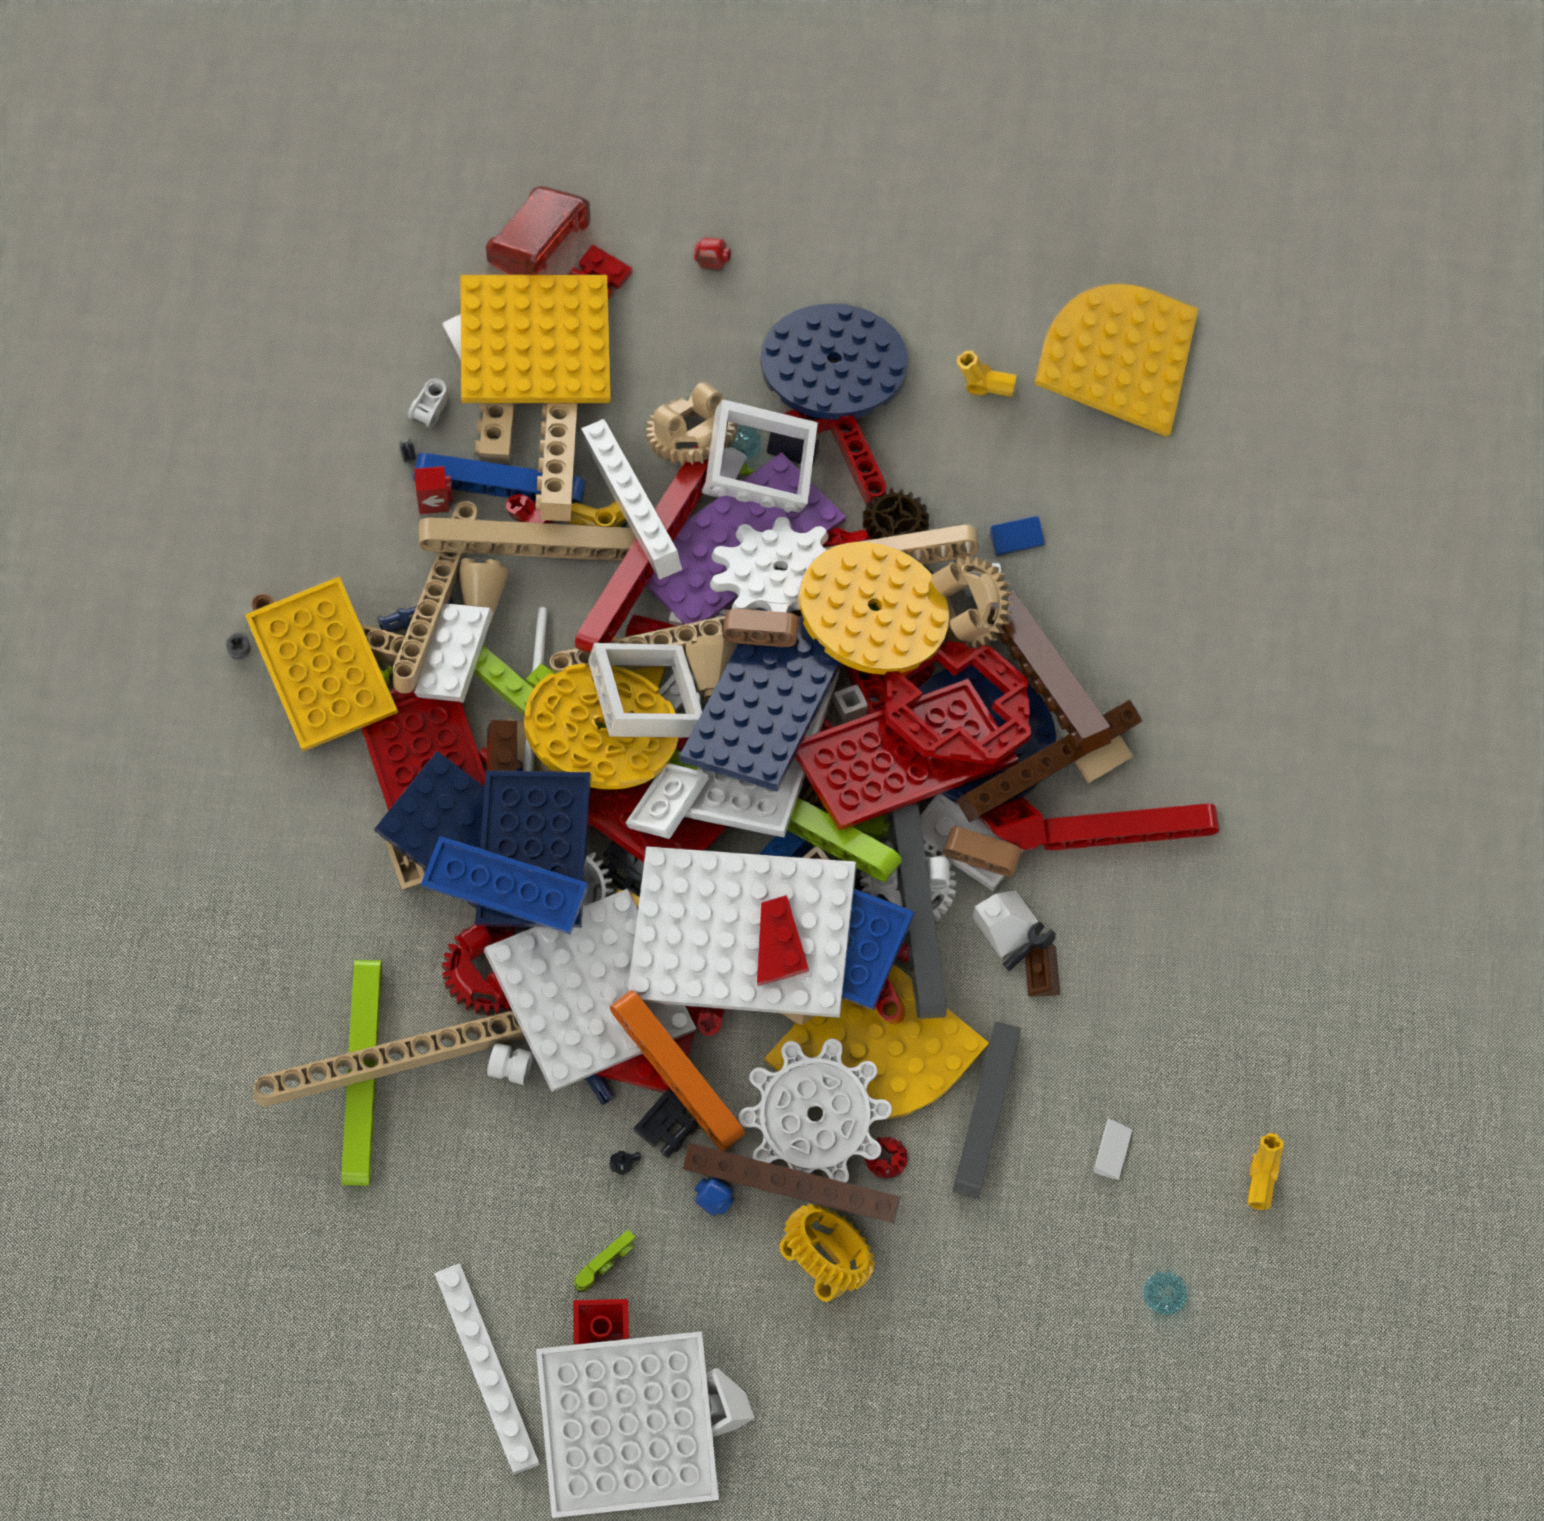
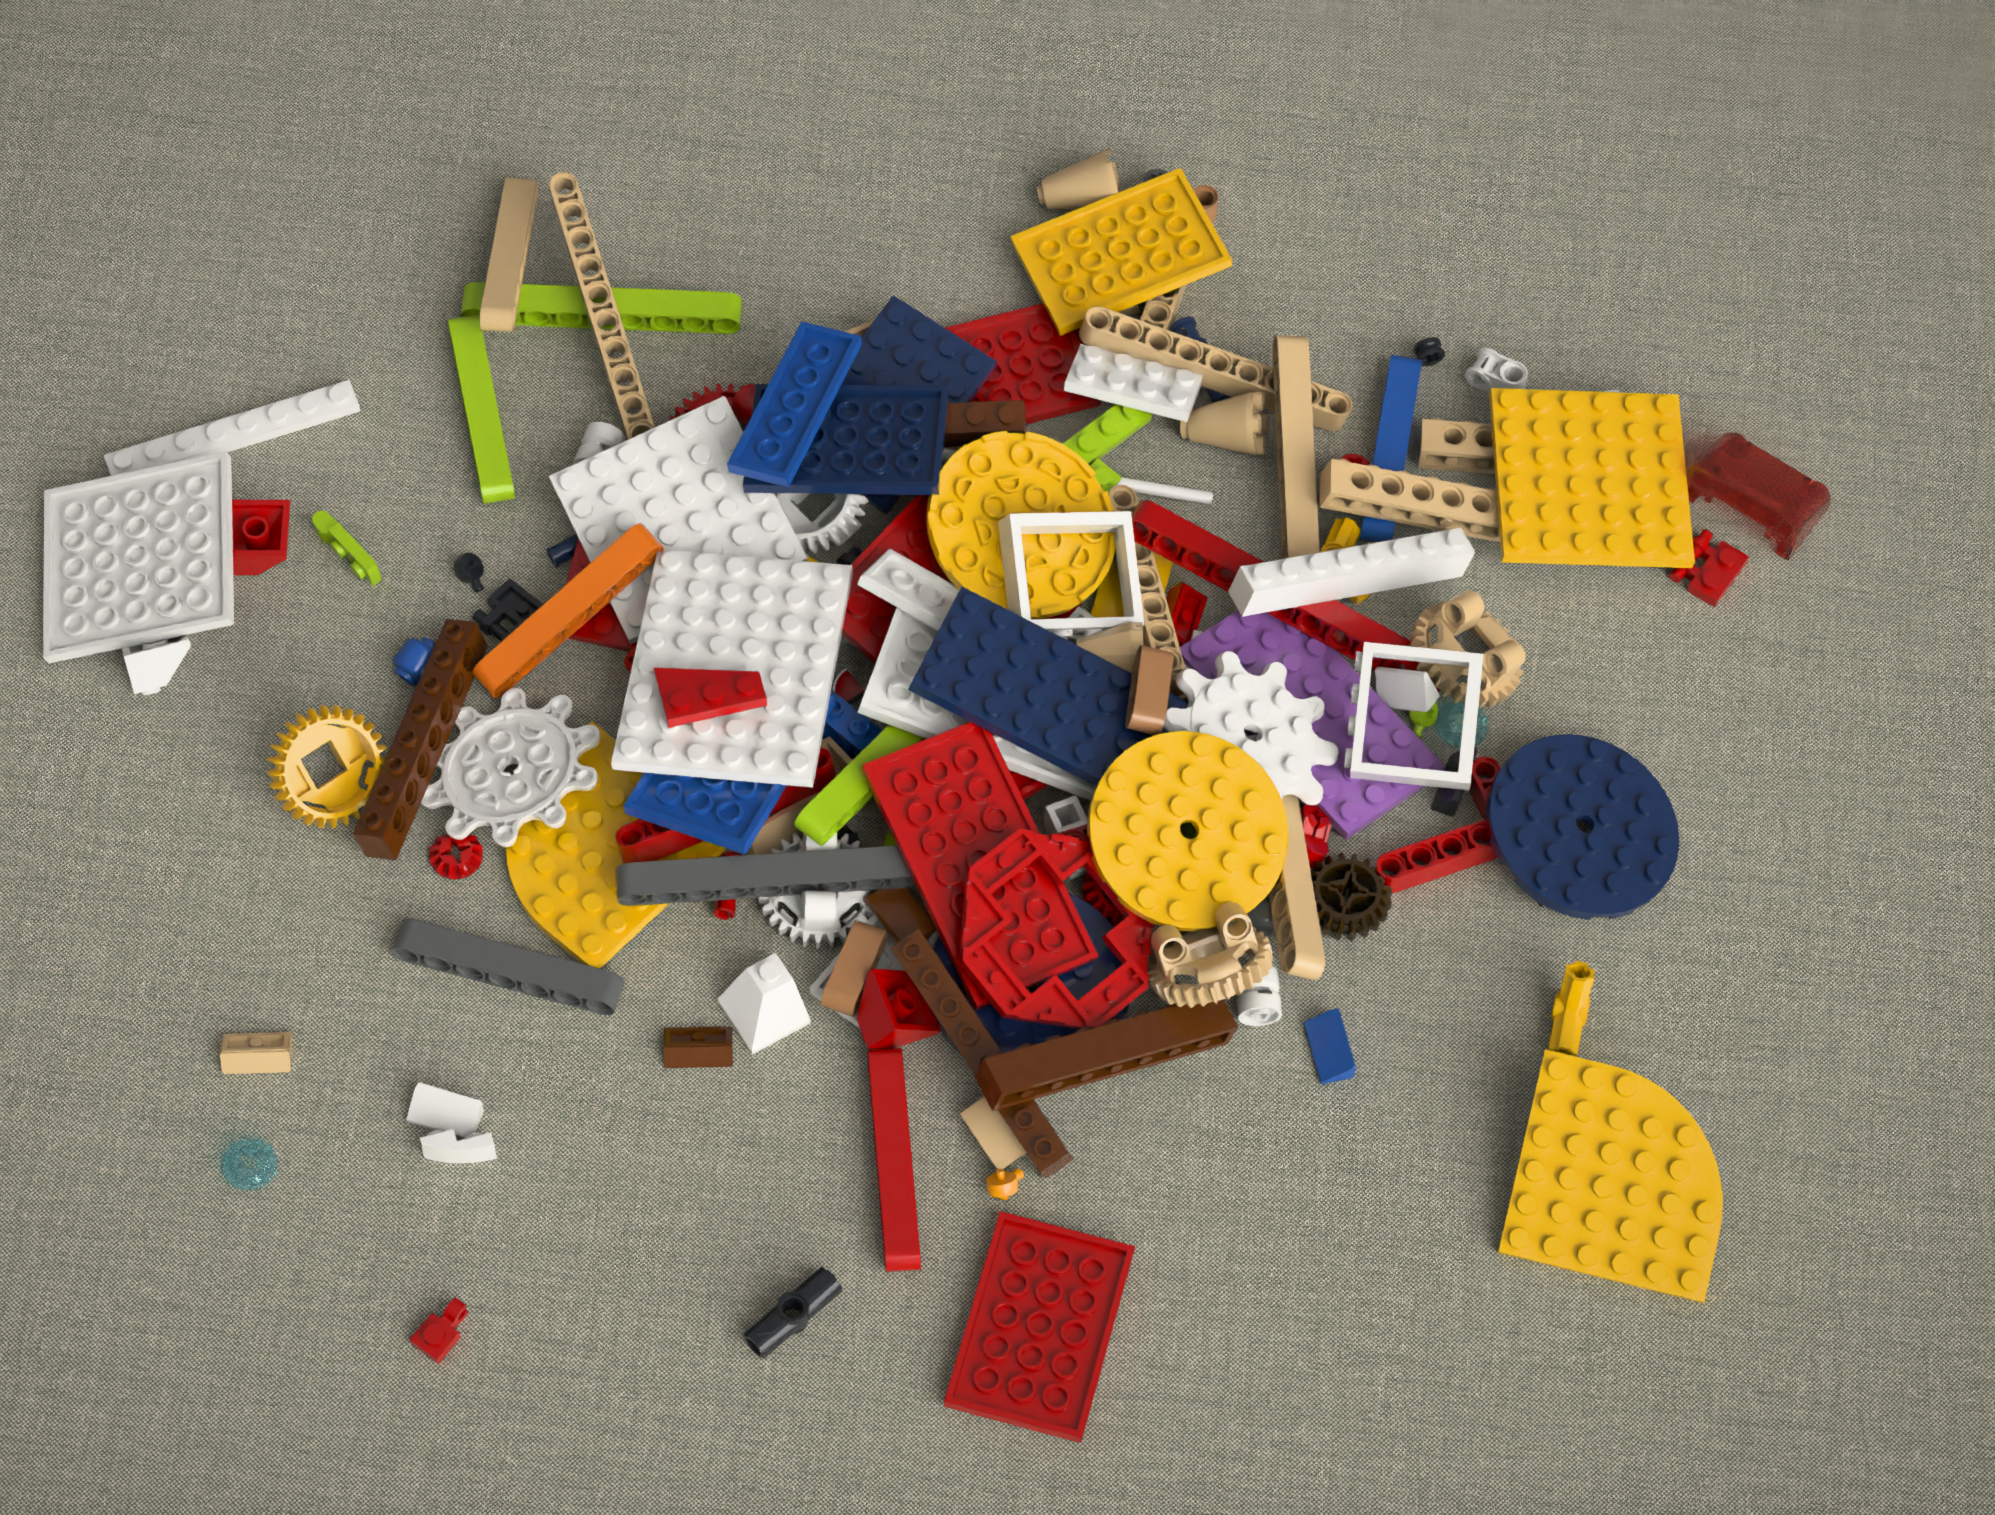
camera: 90 degrees right, 5 degrees down
(246, 694) = (1080, 183): none -> tan cone
(316, 1141) = (509, 255): none -> tan beam
(433, 490) = (1366, 368): red brick -> none
(463, 1162) = (481, 409): none -> lime beam
(712, 253) = (1745, 690): red head -> none
(939, 817) = (900, 913): none -> reddish brown slope
(1036, 941) = (732, 1031): black piece -> none
(1068, 1296) = (256, 1053): none -> tan slope
(1143, 752) = (1003, 1183): none -> light orange piece
(1143, 1141) = (444, 1147): none -> white slope
(1246, 881) = (778, 1327): none -> black piece
(1253, 727) = (1039, 1327): none -> red plate
(1264, 1171) = (394, 1290): yellow piece -> none
(1296, 1142) = (438, 1334): none -> red plate

